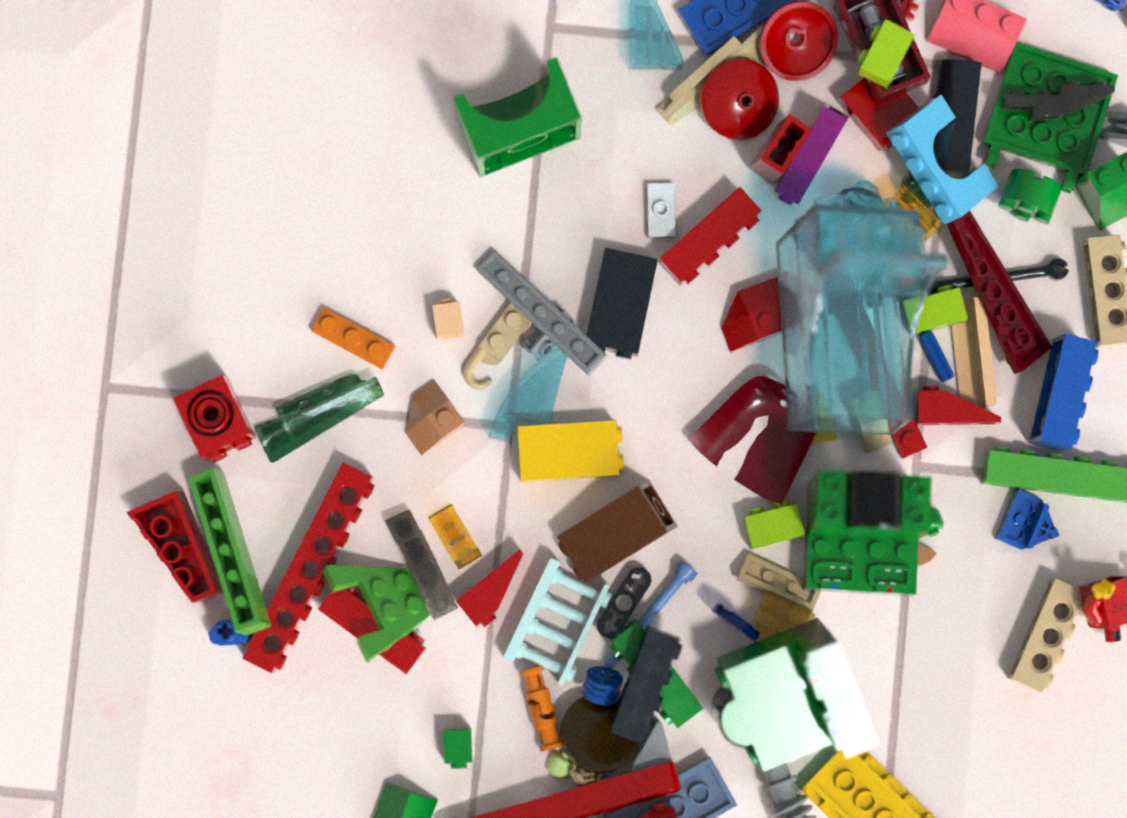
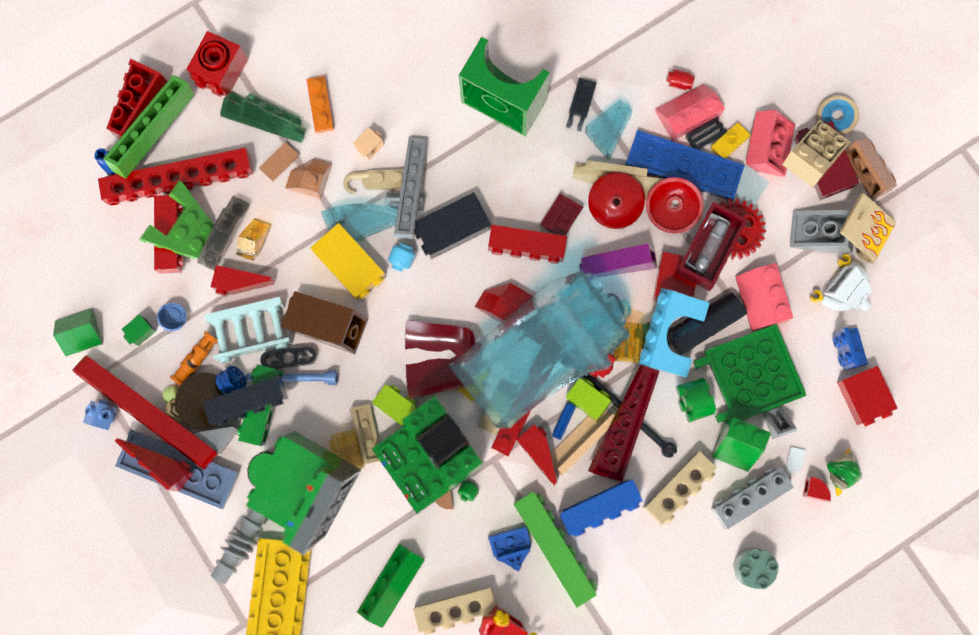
camera: 60 degrees right, 5 degrees down
(384, 438) = (279, 162): none -> nougat tile
(473, 696) = (171, 316): none -> medium blue hair
(593, 44) = (581, 102): none -> black hinge
(611, 386) = (401, 256): none -> medium azure head
(661, 210) = (521, 208): white plate -> none
(707, 173) = (561, 215): none -> dark red plate
(736, 622) = (322, 425): clear blue tile -> none
(780, 148) = (605, 239): red brick -> none
(885, 54) = (704, 249): lime brick -> none
(965, 685) = (390, 586): none -> green panel
(1068, 100) = (769, 378): clear smoke slope -> none

